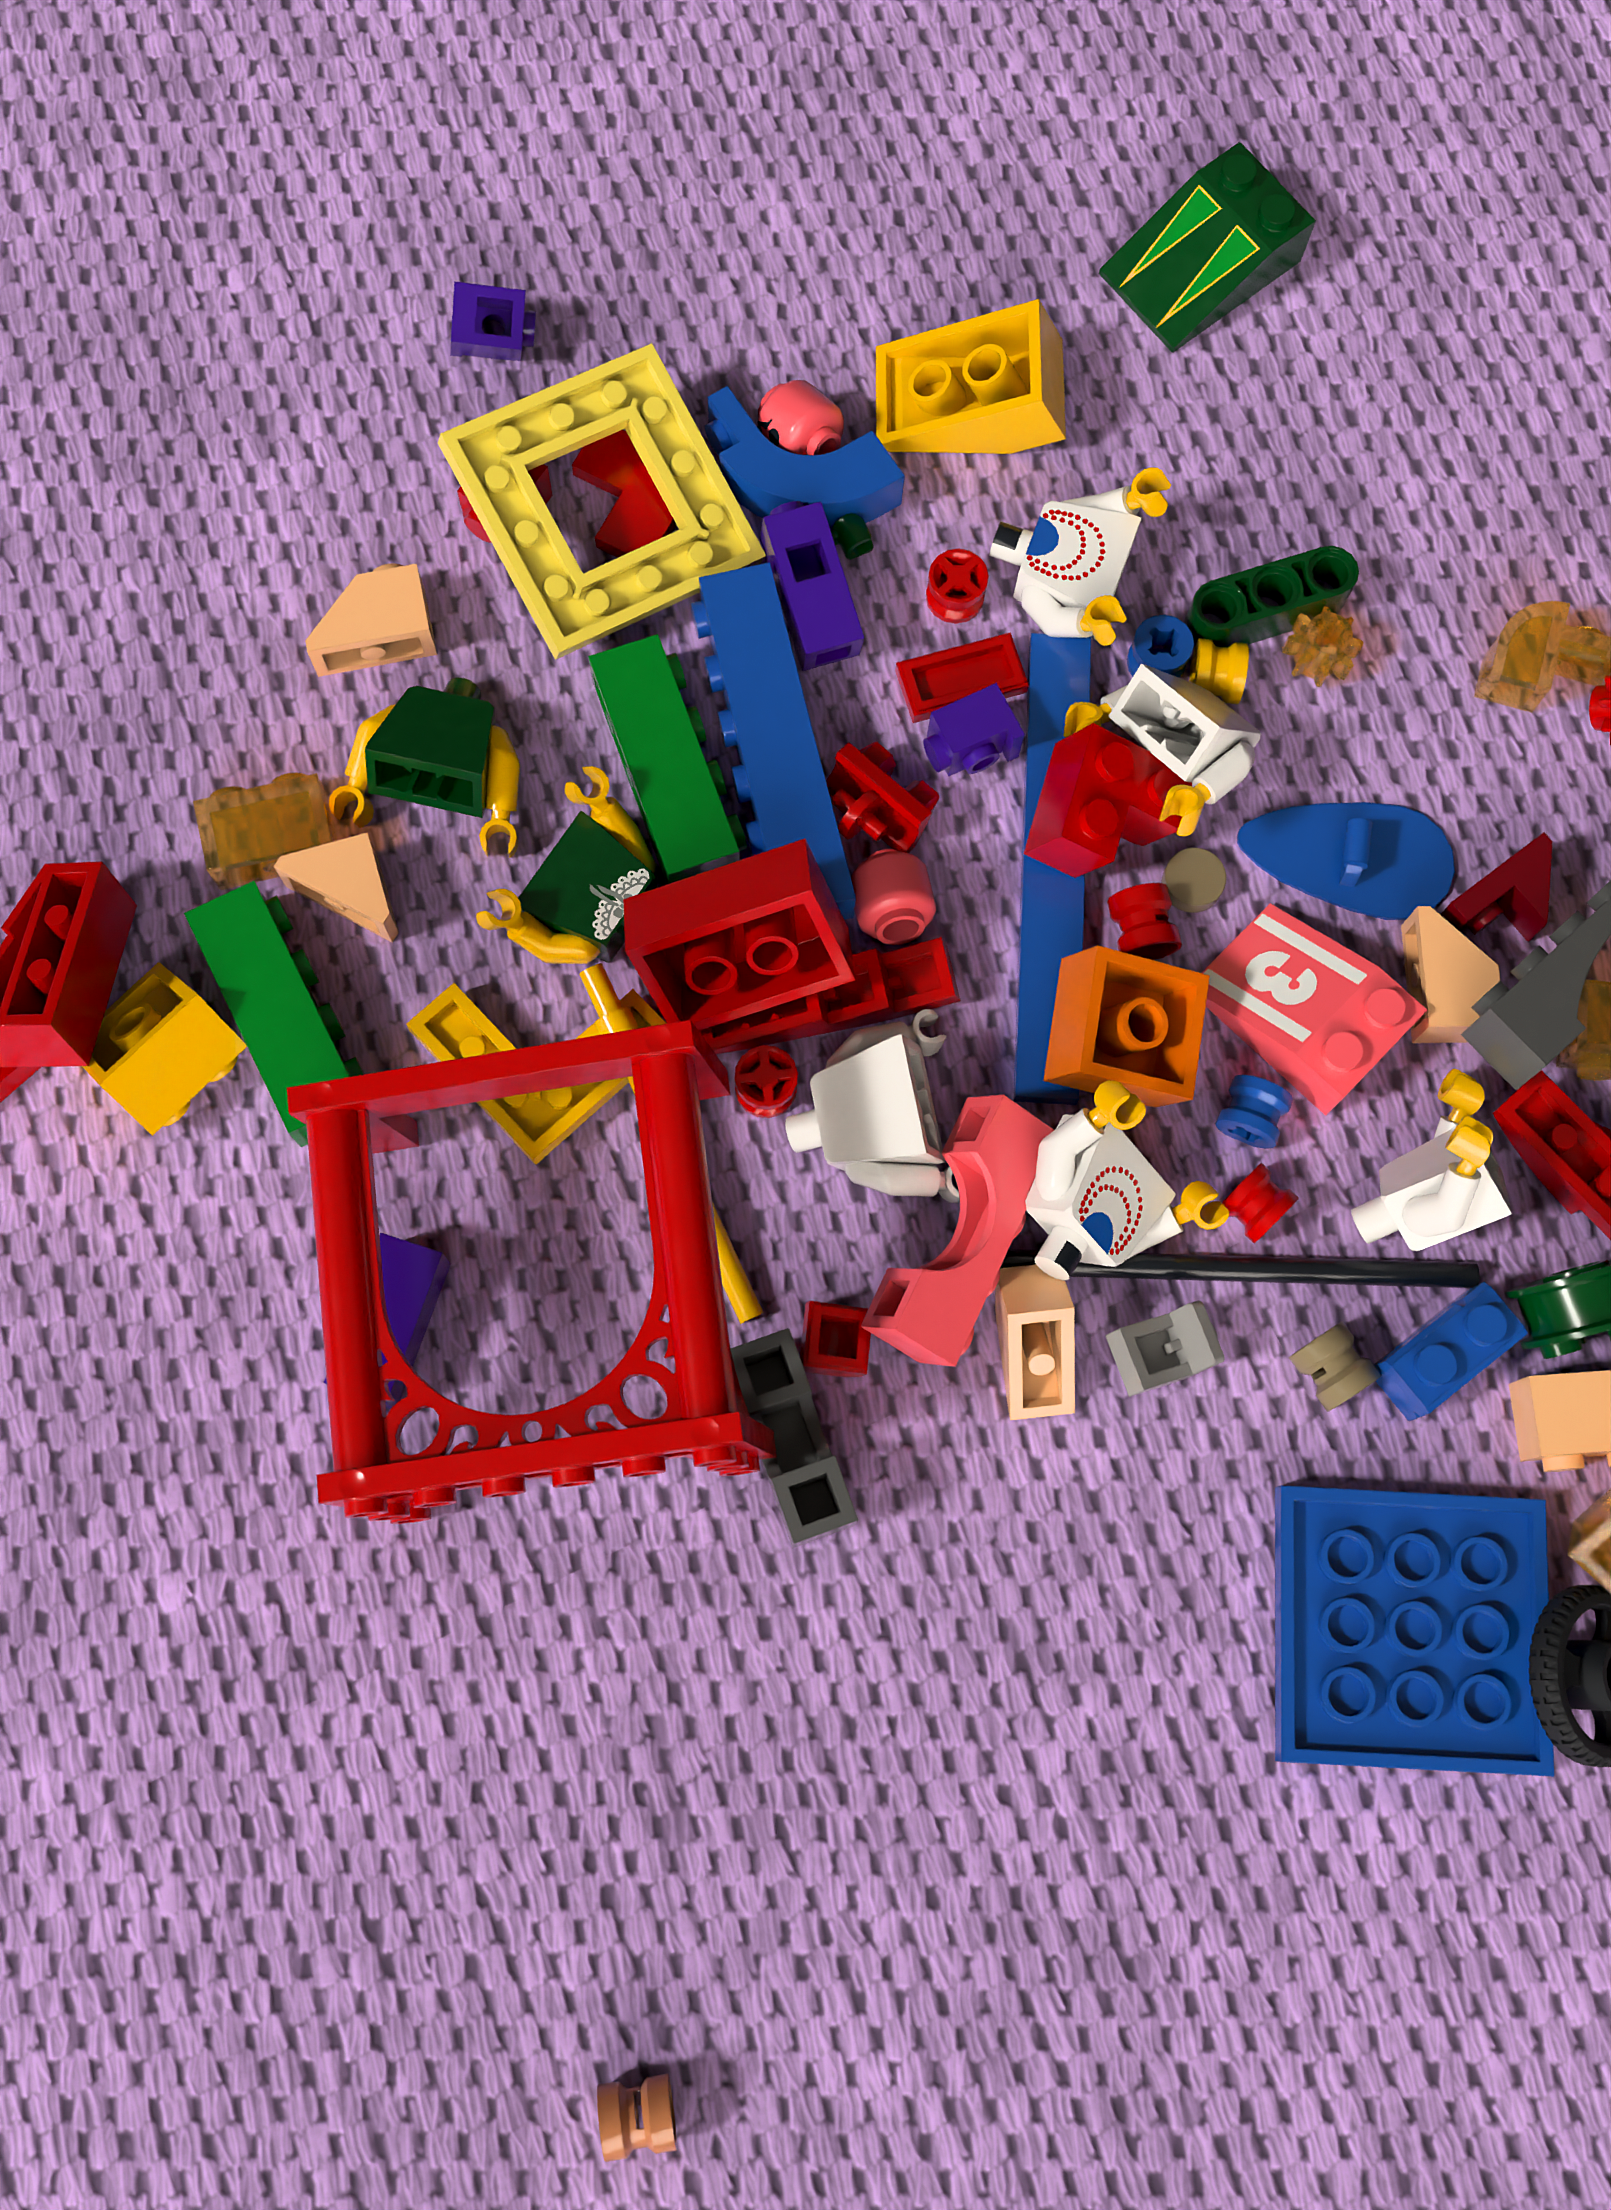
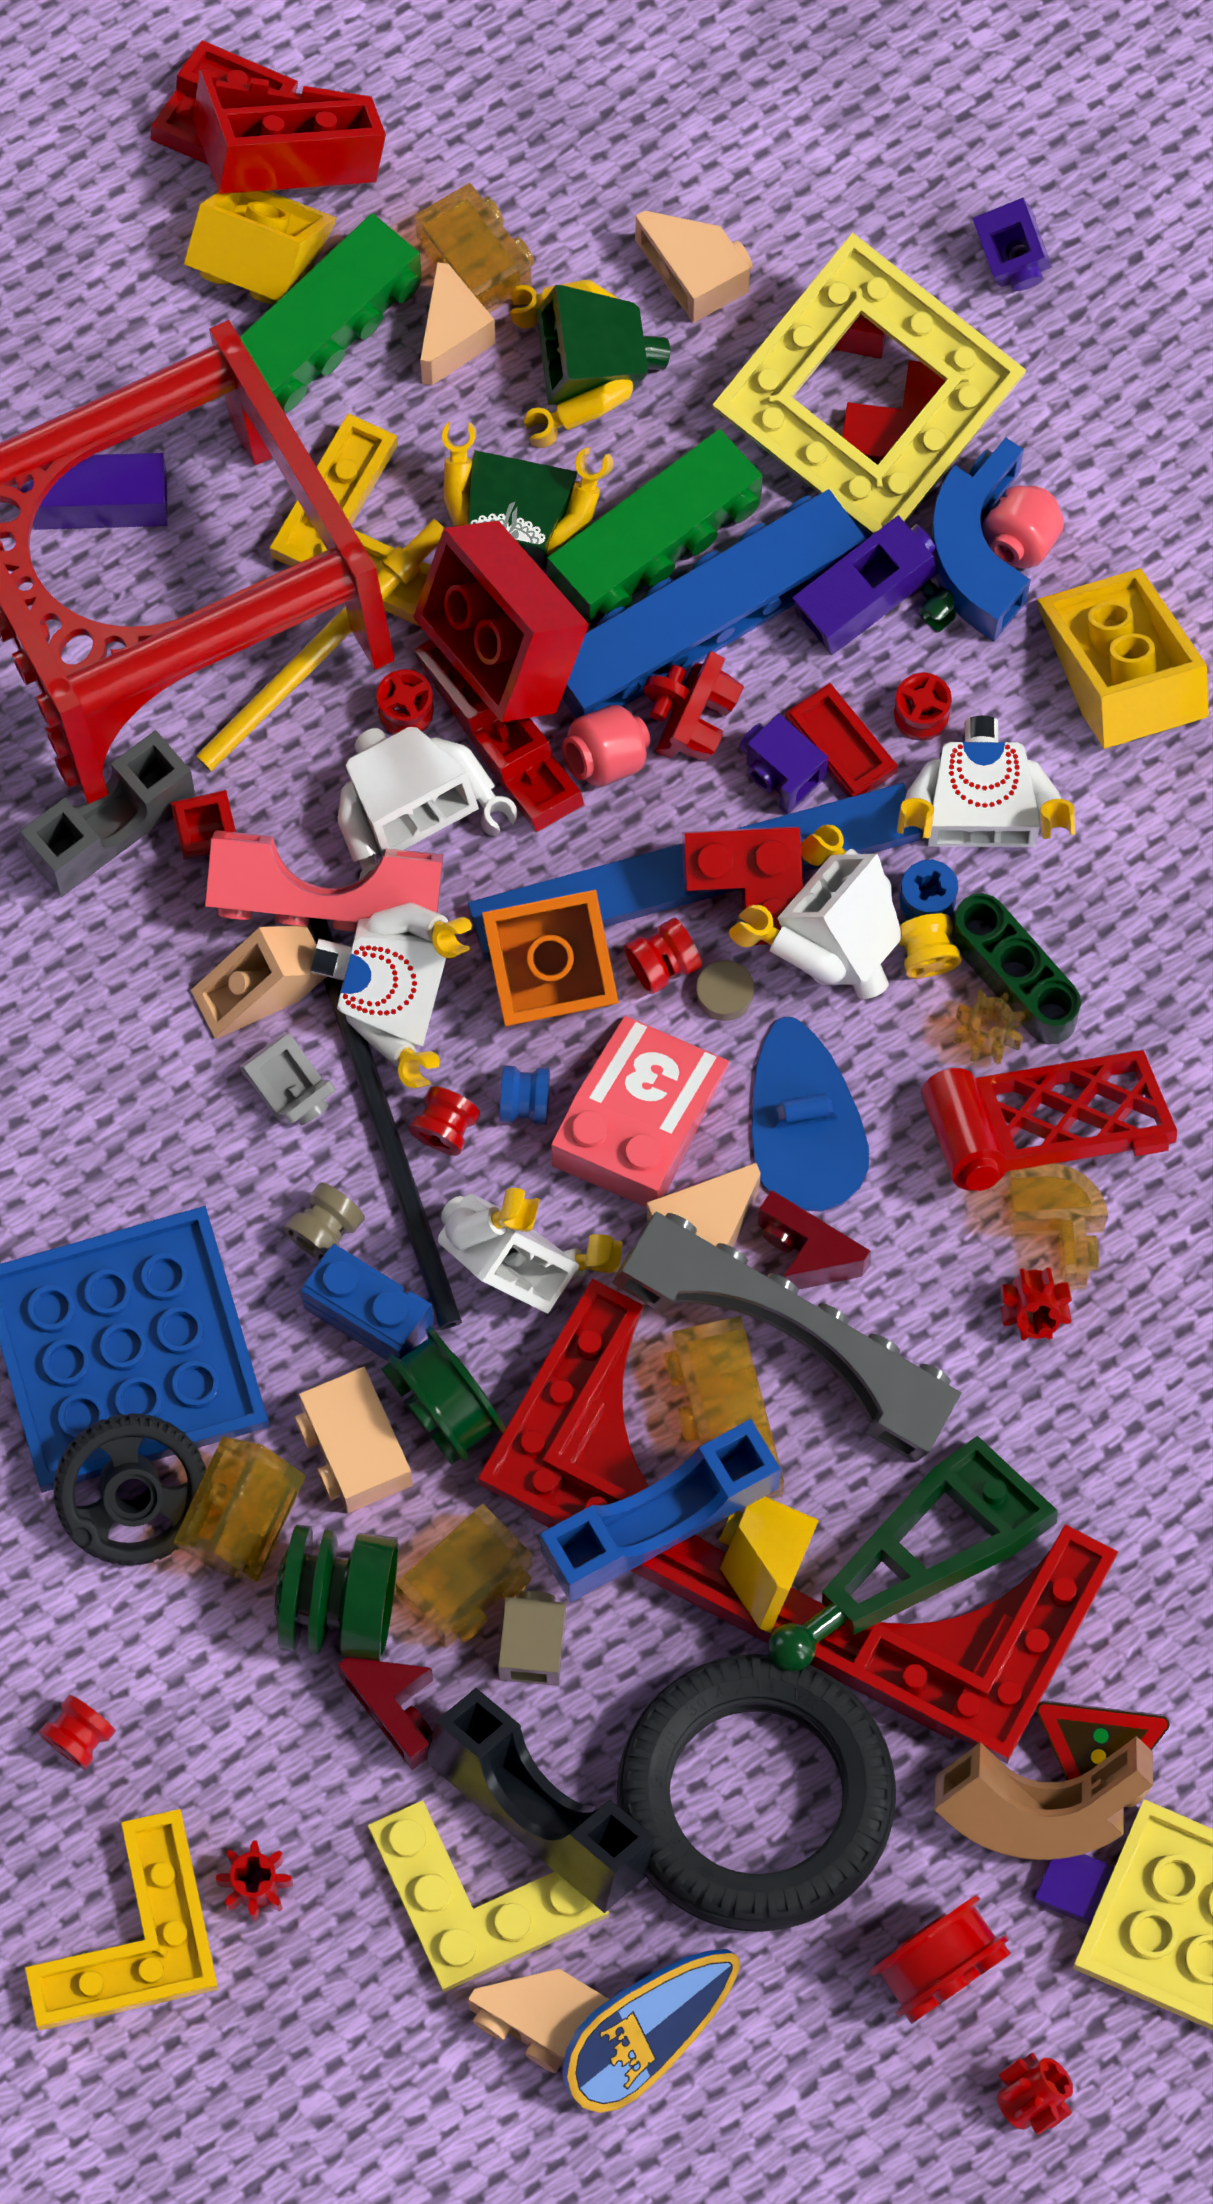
camera: 75 degrees right, 5 degrees down
(1453, 690) = (981, 1144): none -> red piece

